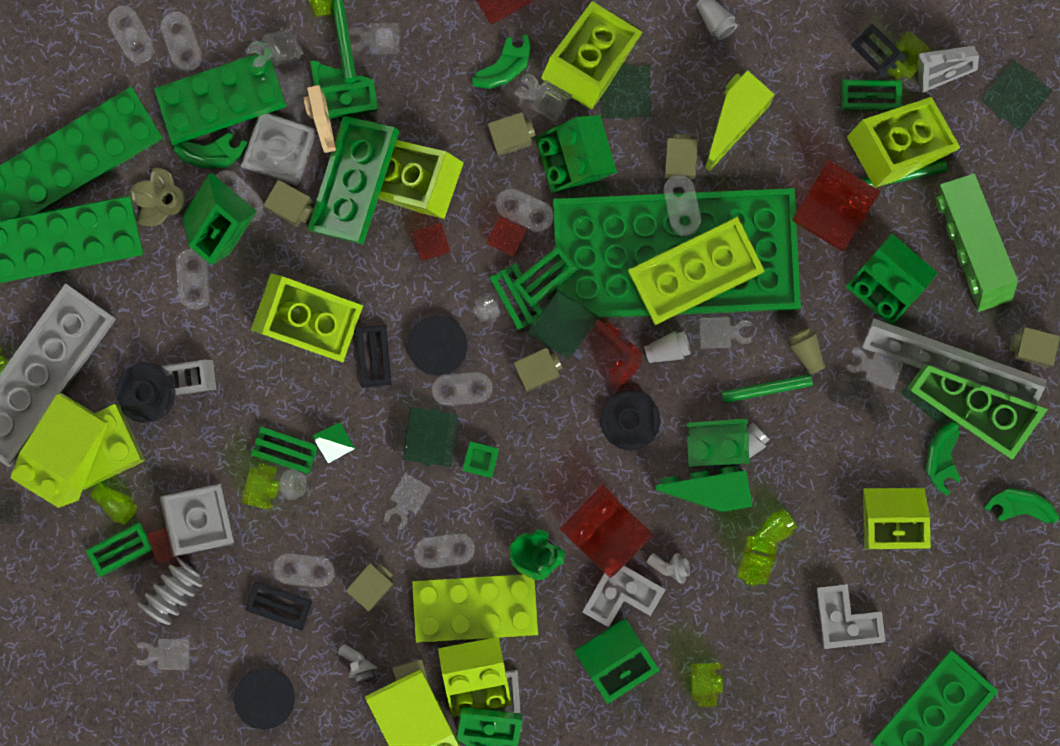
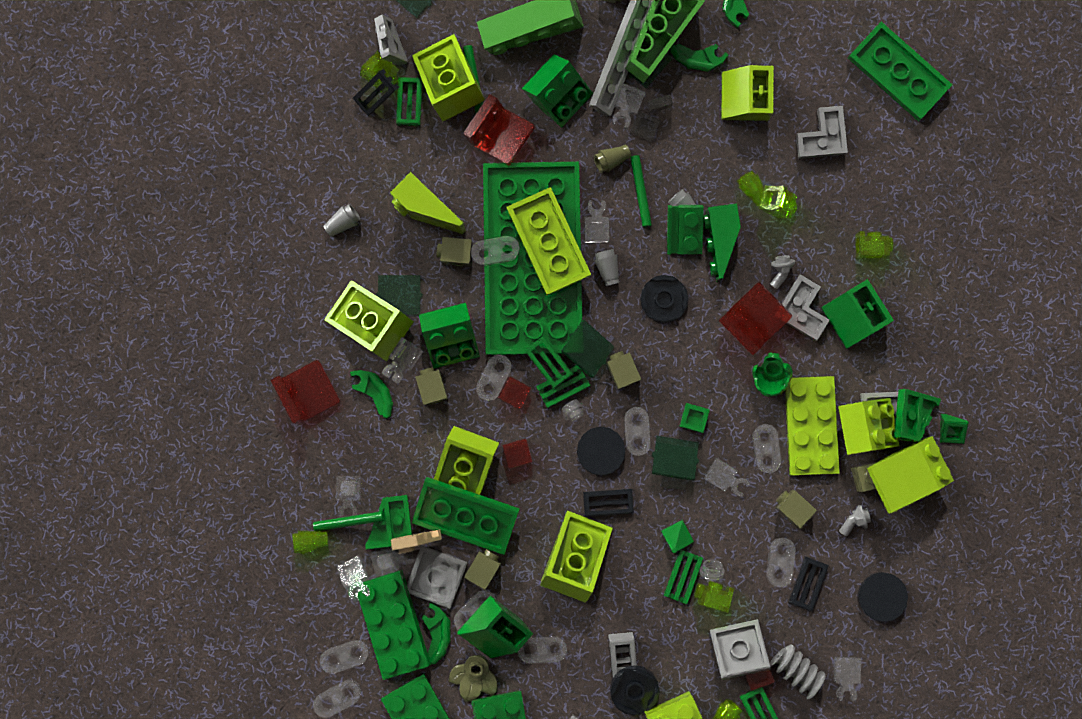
camera: 90 degrees left, 0 degrees up
(621, 371) = (628, 303): clear red bracket -> none

